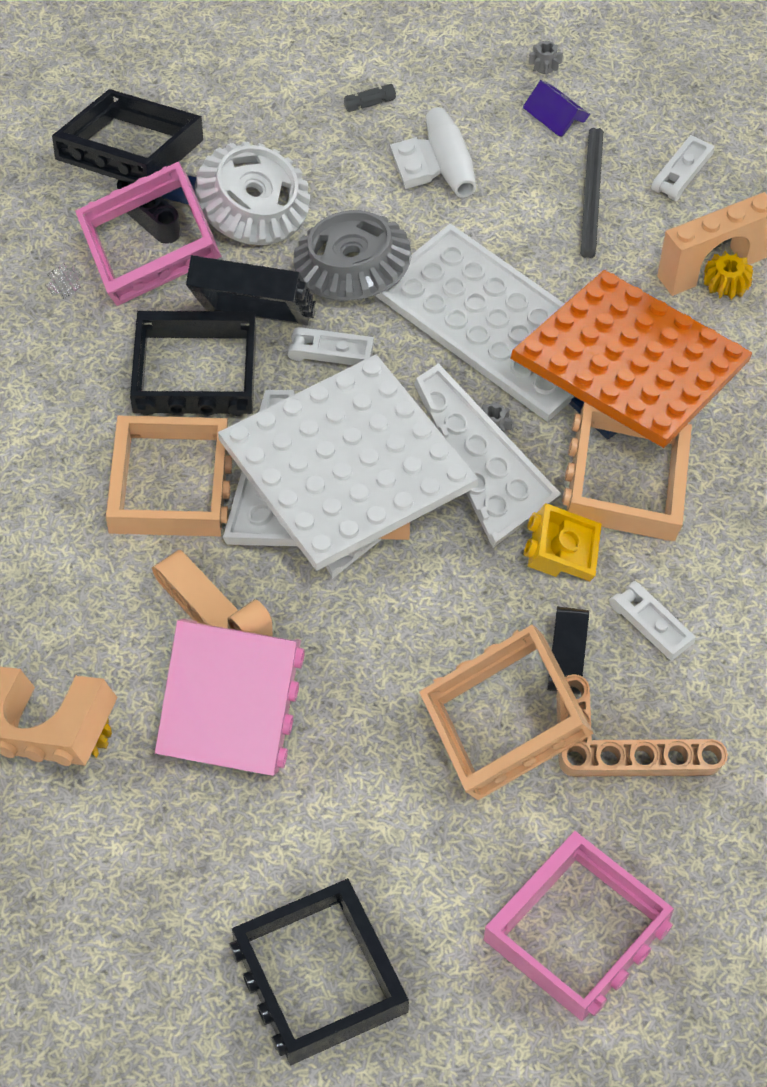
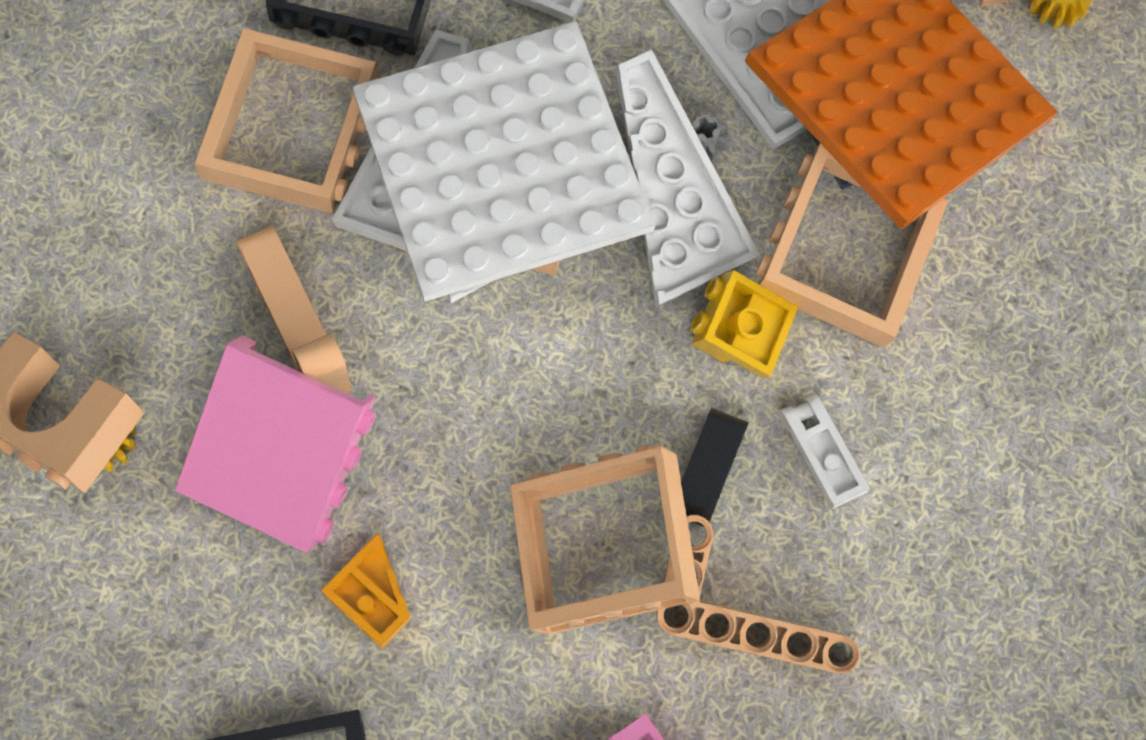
camera: 10 degrees right, 15 degrees up
(329, 799) = (370, 594): none -> light orange wing

